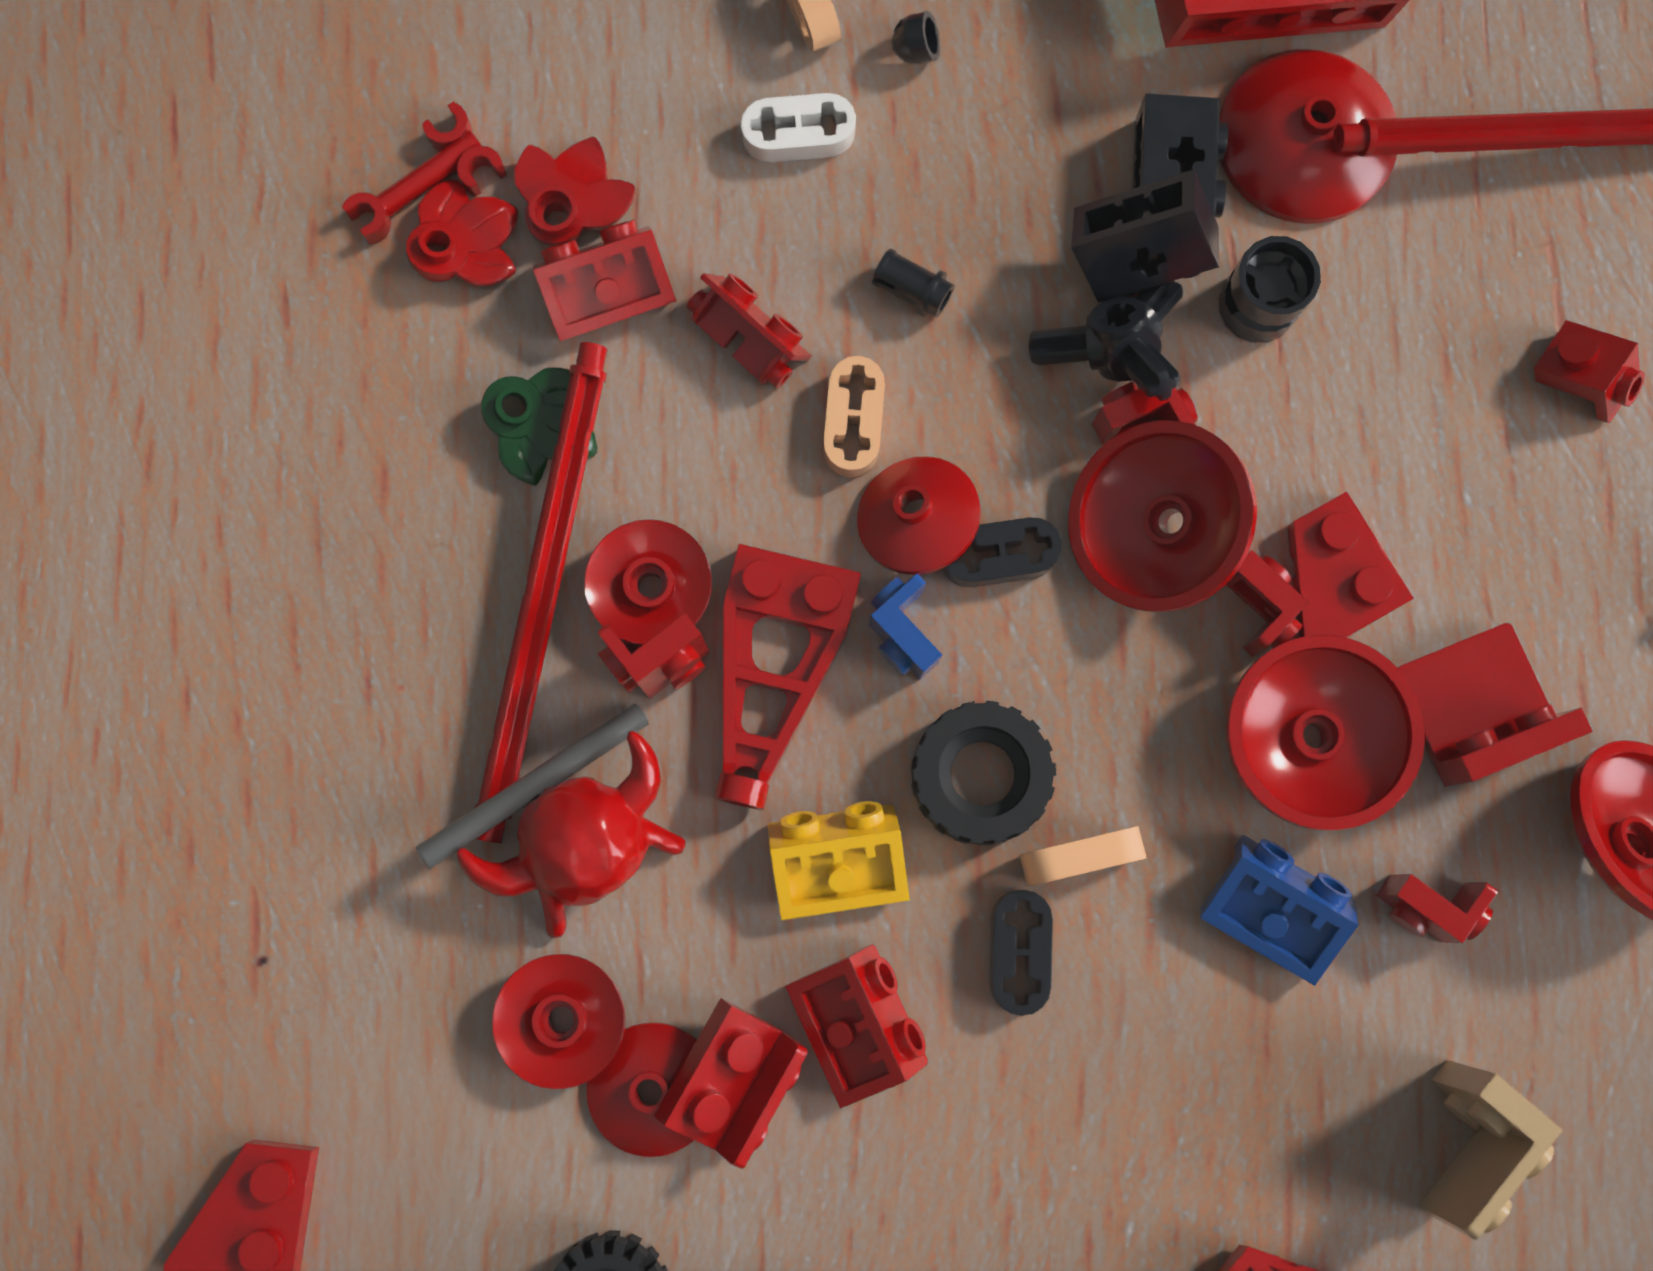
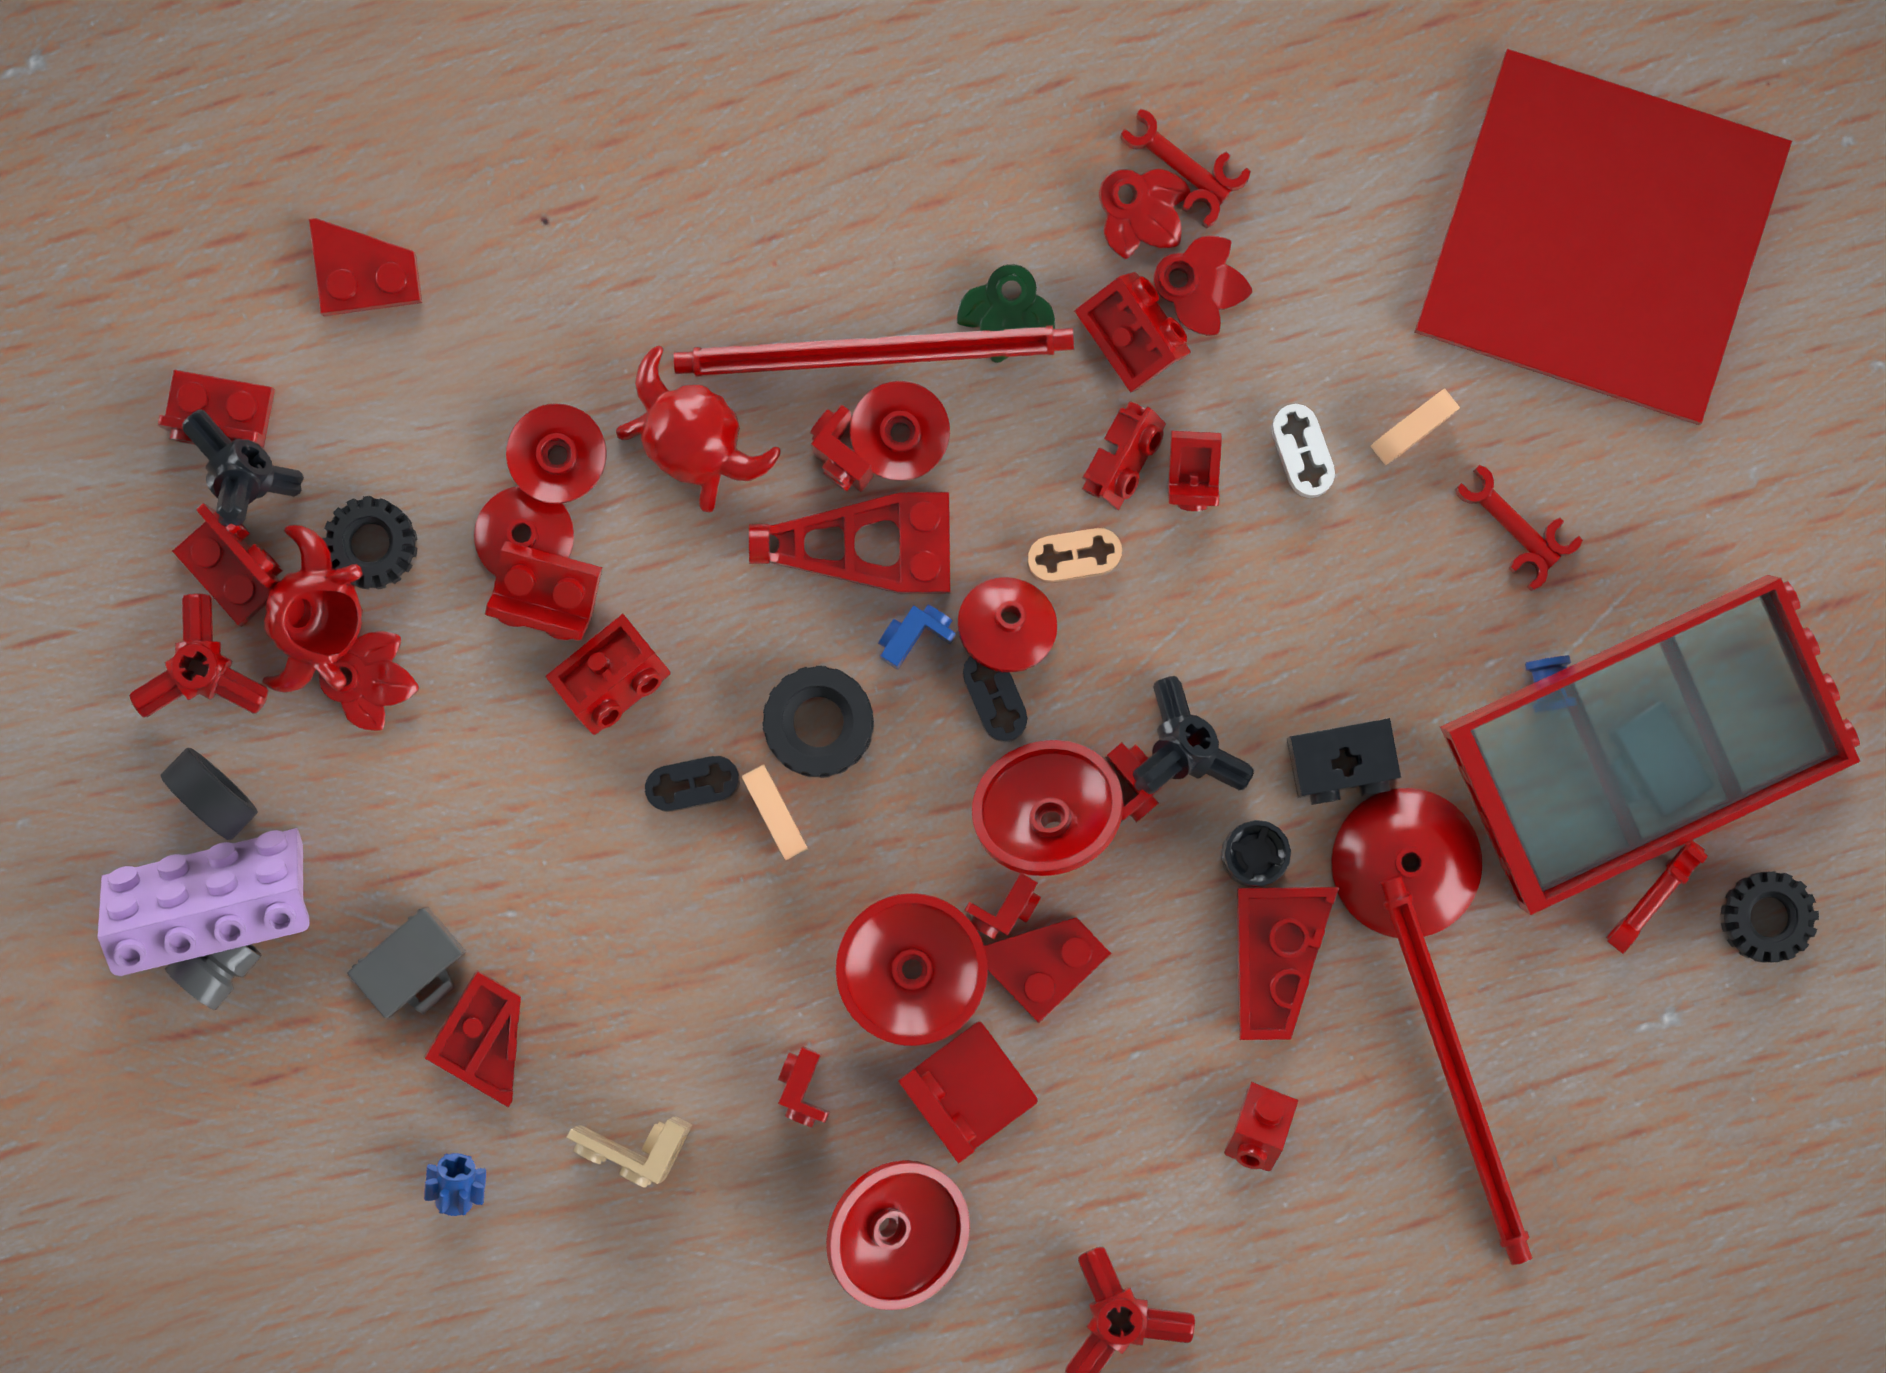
camera: 80 degrees right, 5 degrees up
(530, 786) = (724, 387): dark grey bar -> none
(789, 249) = (1194, 469): none -> red bracket
(838, 860) = (725, 628): yellow bracket -> none
(913, 283) = (1194, 575): black pin -> none
(917, 38) = (1402, 527): black hinge -> none
(1146, 236) = (1266, 744): black brick -> none
(1282, 909) = (773, 970): blue bracket -> none
(1392, 304) = (1276, 955): none -> red wing

